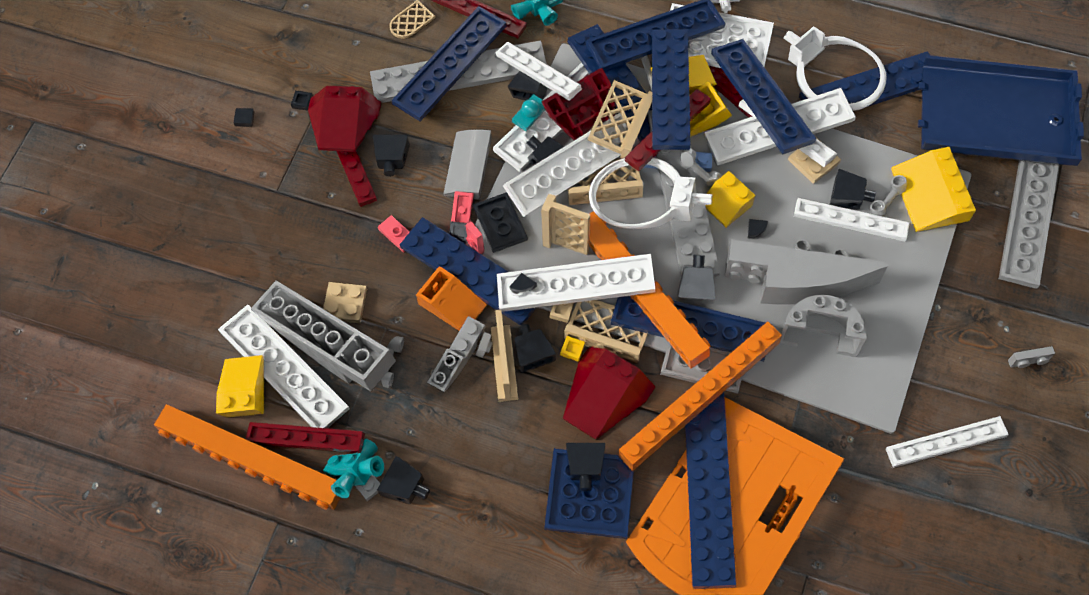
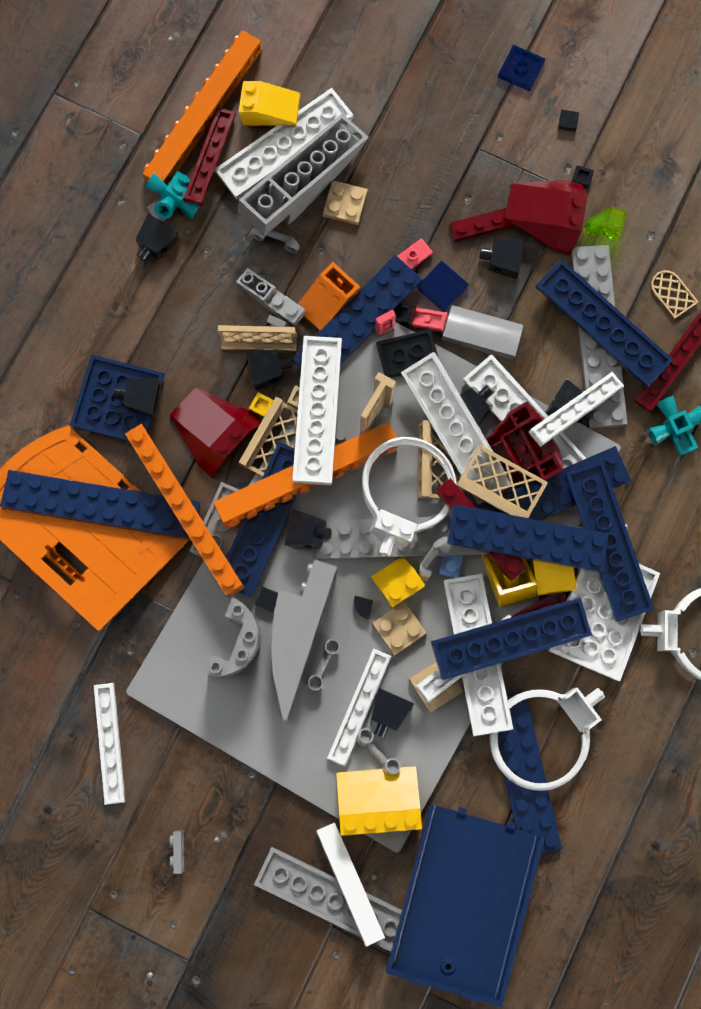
camera: 95 degrees right, 15 degrees up
(189, 162) = (521, 68): none -> clear blue tile
(348, 70) = (607, 222): none -> clear neon green slope
(425, 202) = (442, 286): none -> clear blue tile
(522, 283) = (323, 358): black tile -> none
(529, 113) = (523, 392): teal tile -> none
(769, 312) = (267, 599): none -> black tile
(771, 195) = (399, 628): none -> tan plate
(1012, 204) = (350, 884): none -> white tile

